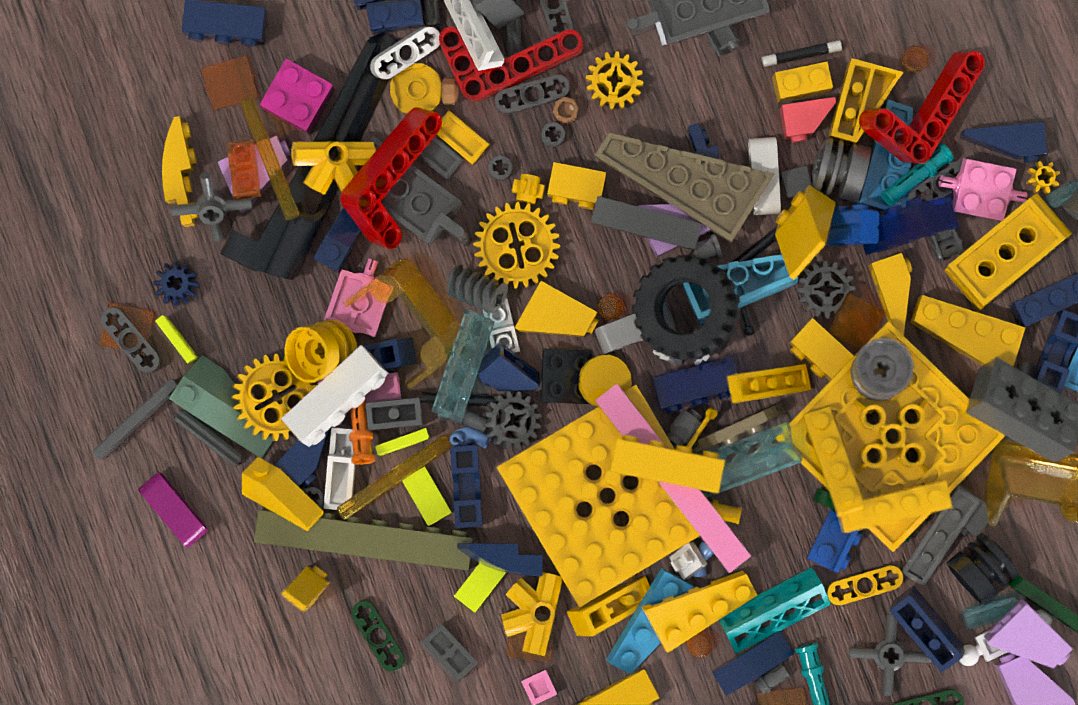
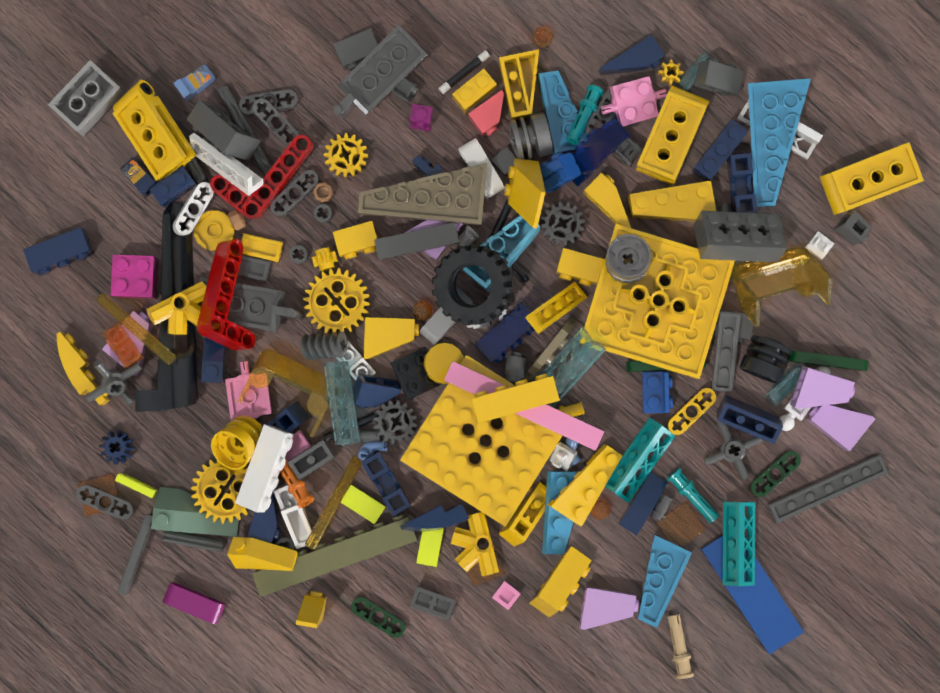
camera: 25 degrees left, 0 degrees up
(229, 82) = (83, 291): clear orange piece -> none
(402, 442) = (327, 476): neon yellow tile -> none
(711, 413) = (527, 348): yellow hinge -> none
(724, 81) = (421, 117): none -> magenta brick
(833, 461) = (627, 338): yellow plate -> none
(856, 321) = (594, 234): clear orange piece -> none
(898, 506) = (684, 347): yellow brick -> none
(929, 114) = (571, 68): red beam -> none

